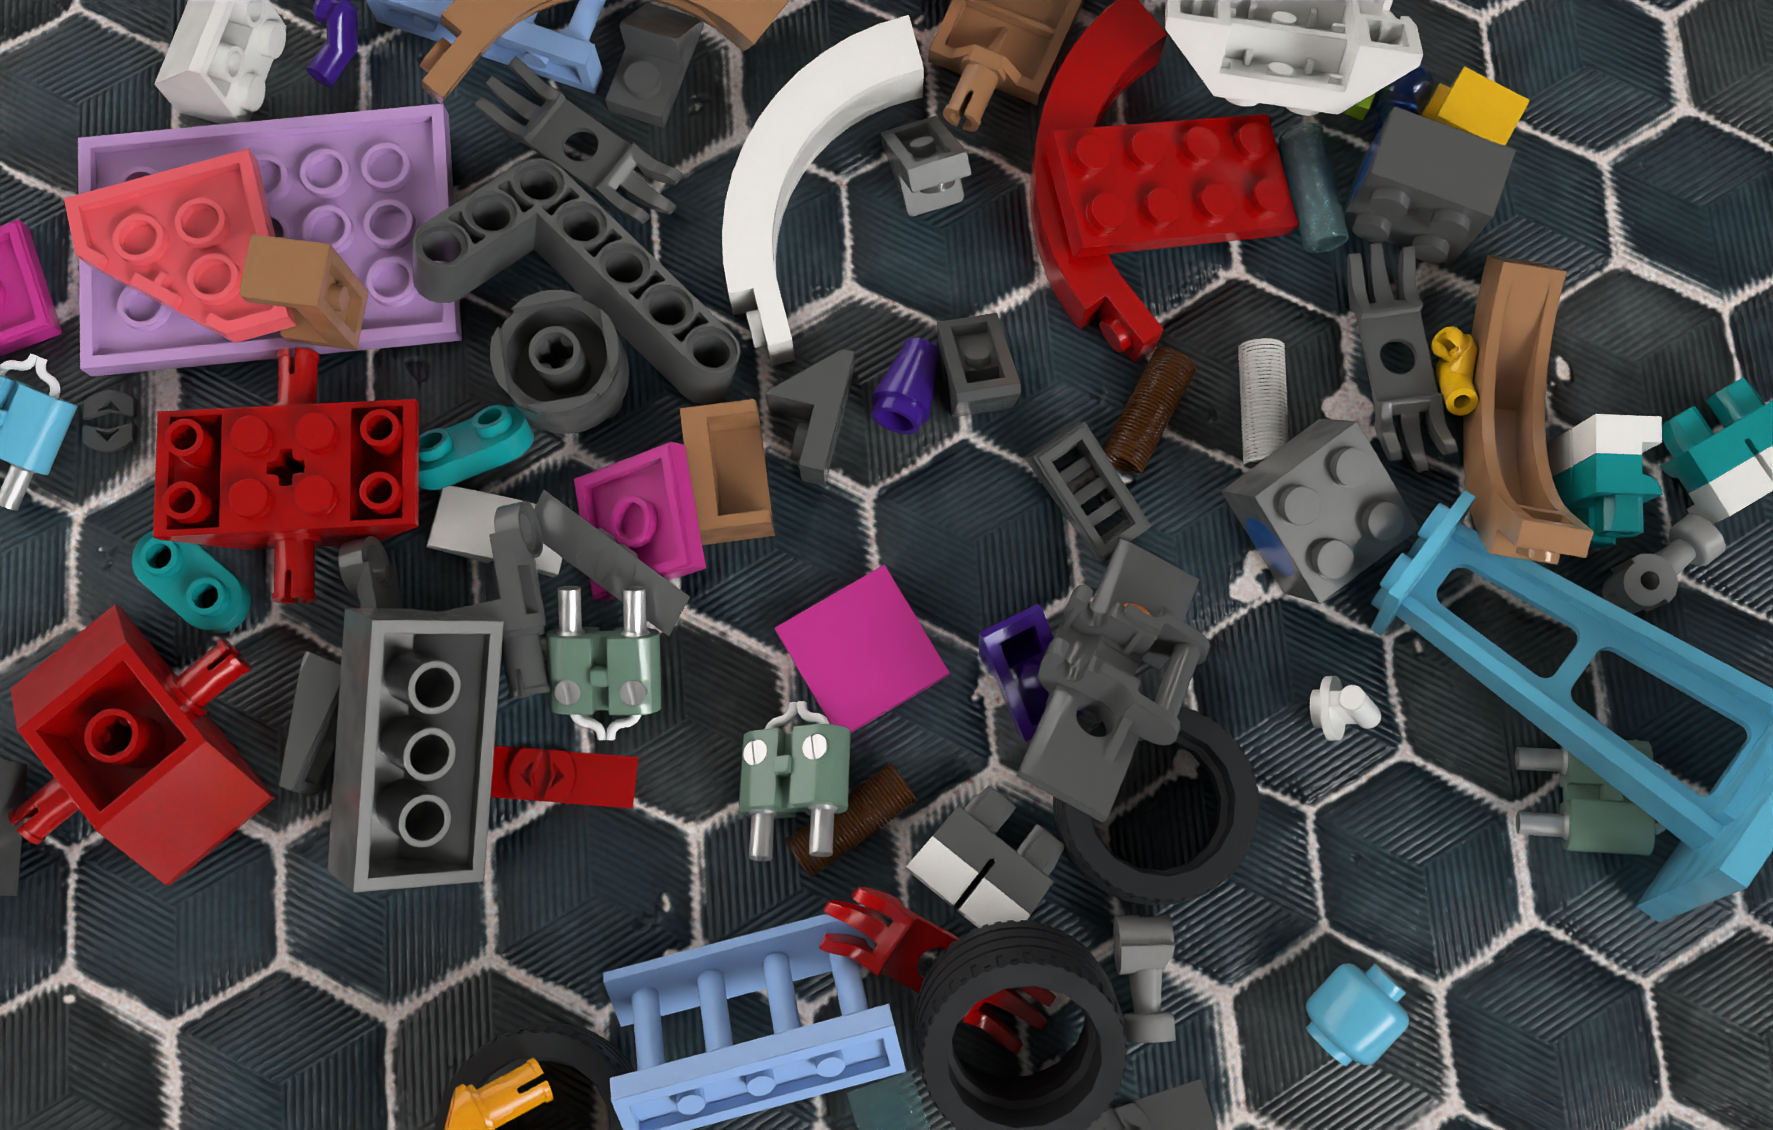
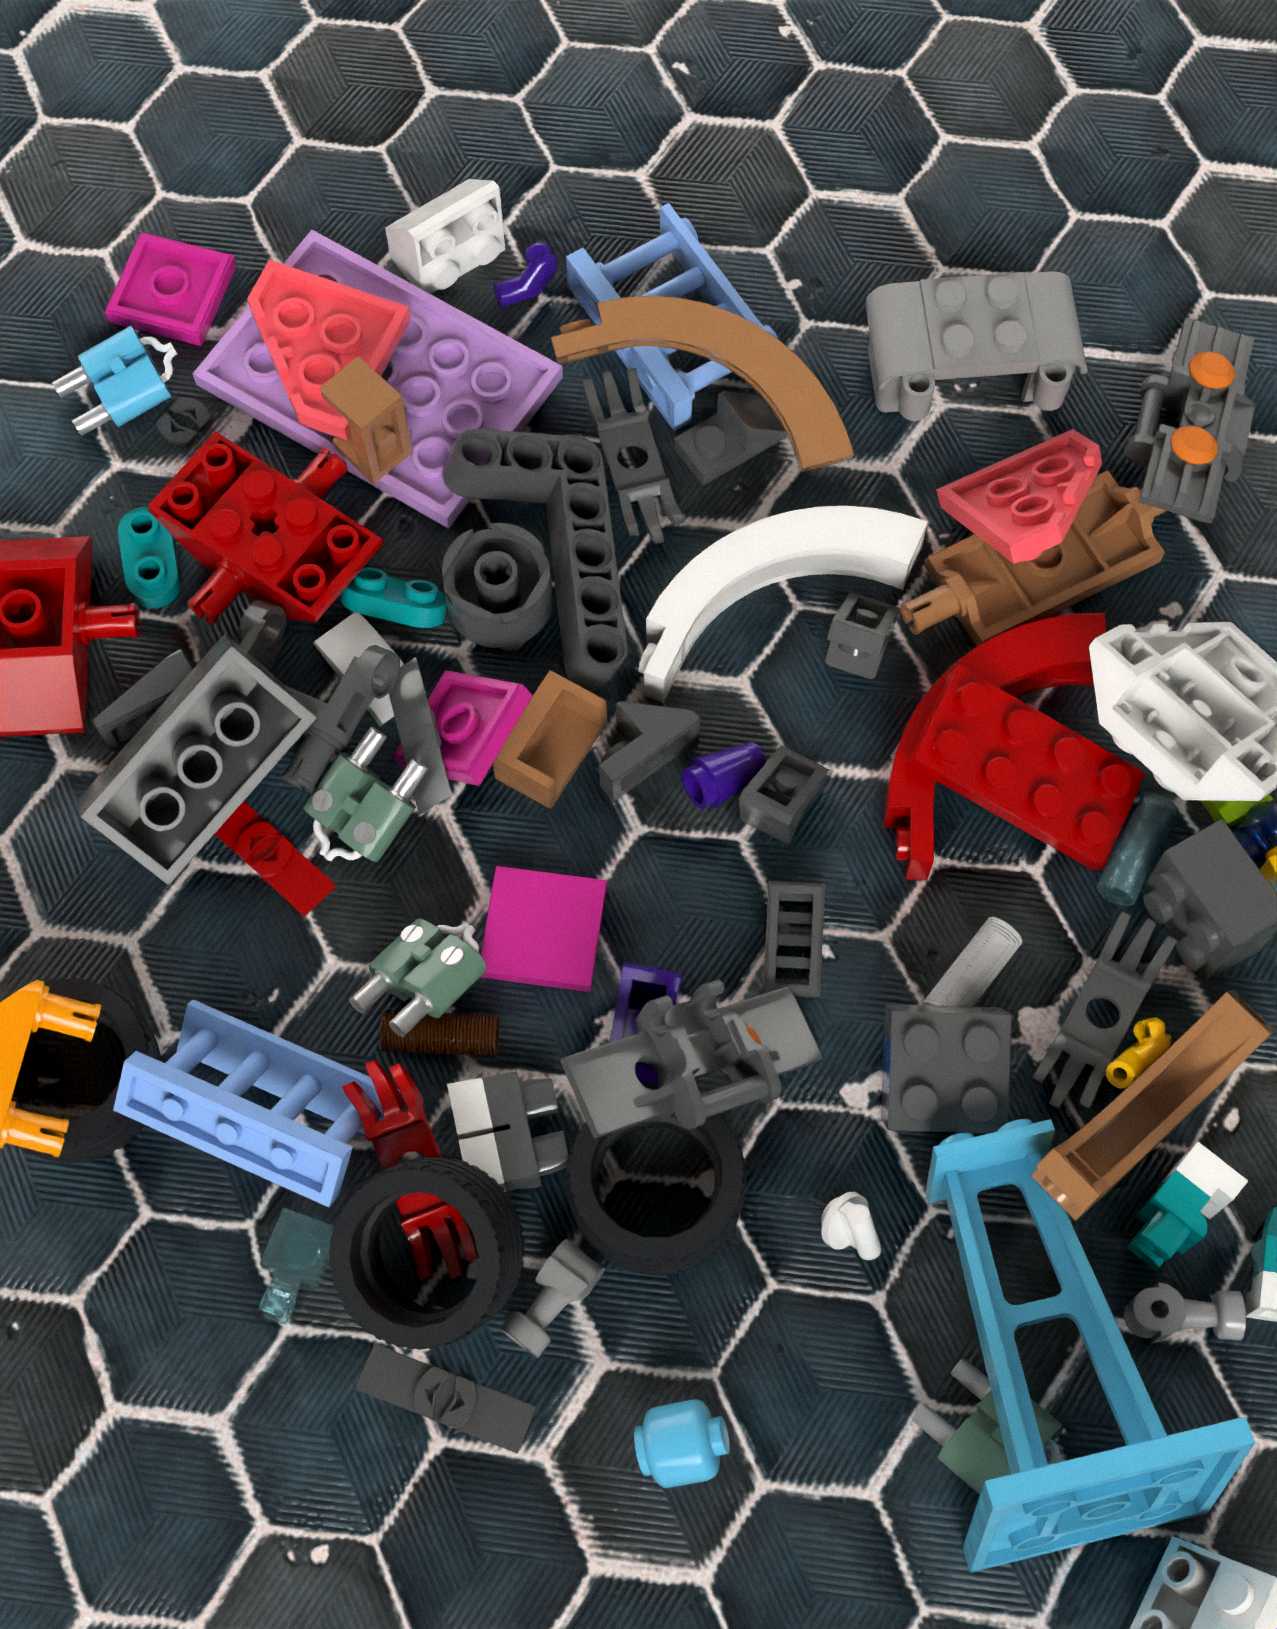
camera: 40 degrees right, 10 degrees down
(1164, 383) = (843, 925): reddish brown piece -> none

